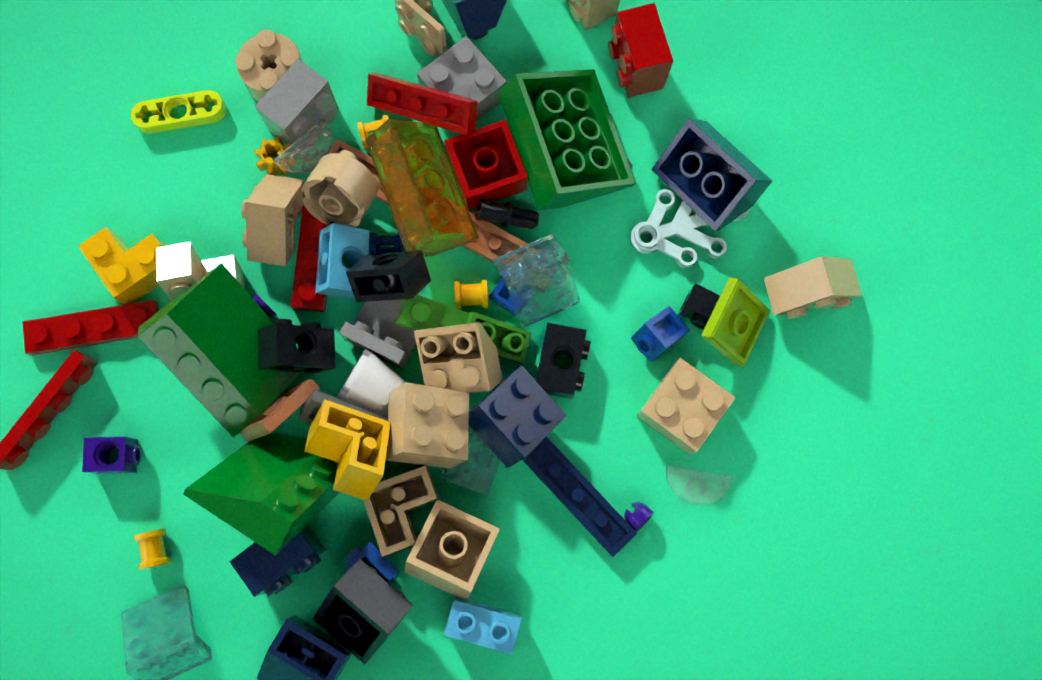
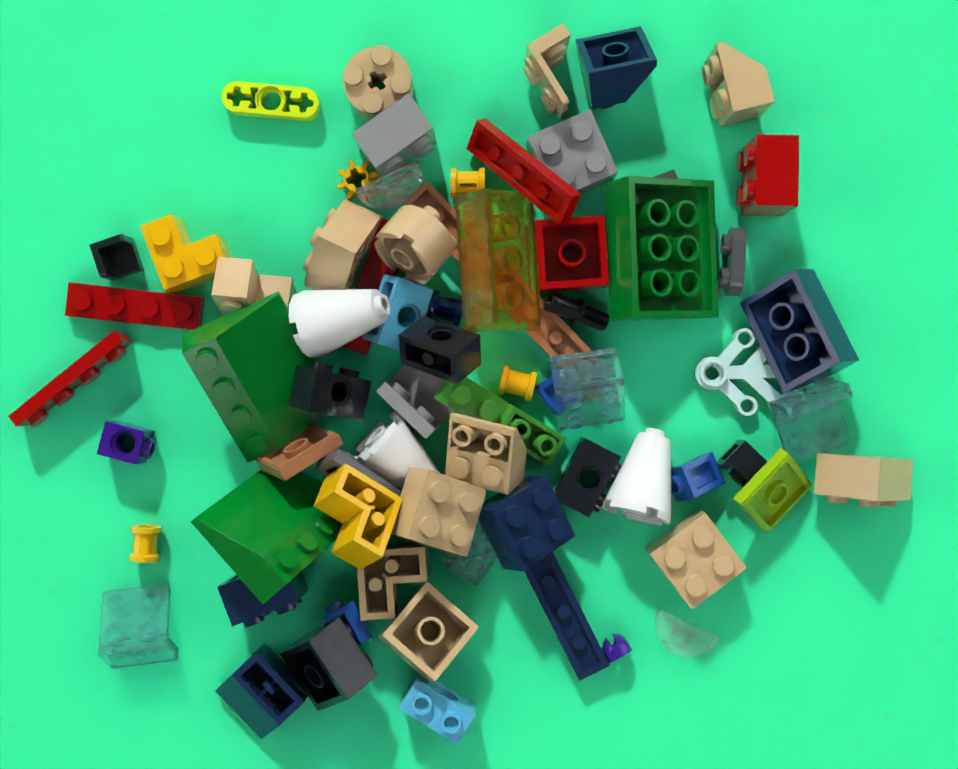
camera: 20 degrees right, 10 degrees up
(63, 284) = (116, 257): none -> black panel
(283, 275) = (335, 317): none -> white cone
(615, 350) = (644, 481): none -> white cone
(636, 146) = (734, 248): none -> dark grey plate
(749, 248) = (812, 418): none -> clear light blue bracket

